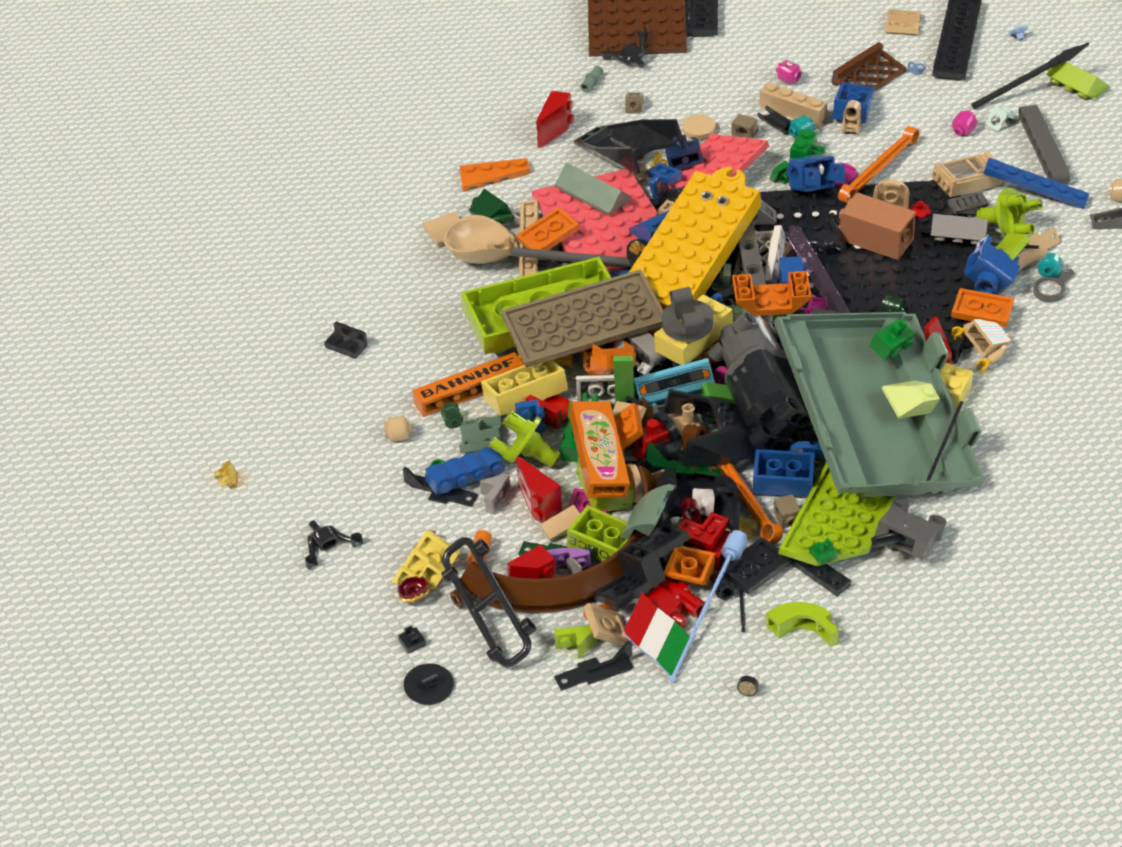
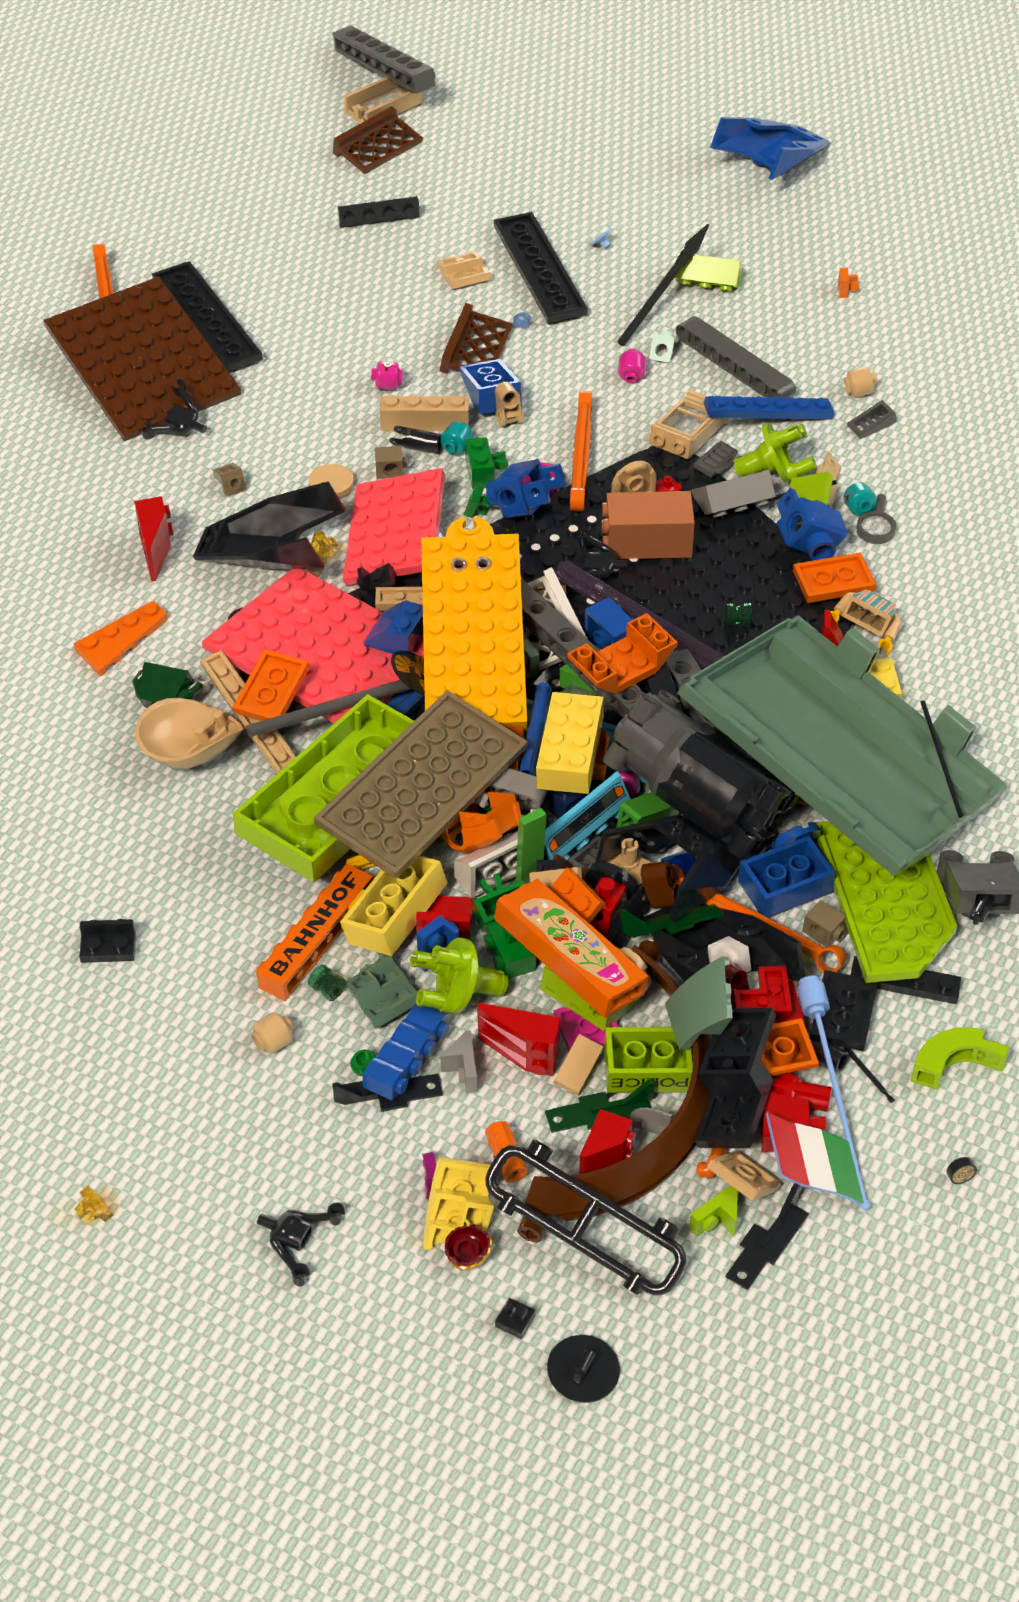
camera: 35 degrees left, 5 degrees up
(438, 226) = (115, 735): tan tile -> none
(562, 554) = (629, 1102): medium lavender slope -> none
(591, 78) = (154, 468): sand green pin -> none
(591, 190) = (280, 611): sand green slope -> none
(664, 174) = (347, 556): blue plate -> none
(684, 154) = (354, 522): dark blue brick -> none
(694, 315) = (555, 715): dark grey piece -> none
(823, 551) = (921, 956): green tile -> none
(892, 339) = (808, 657): green brick -> none
(911, 398) = (874, 719): yellowish green slope -> none

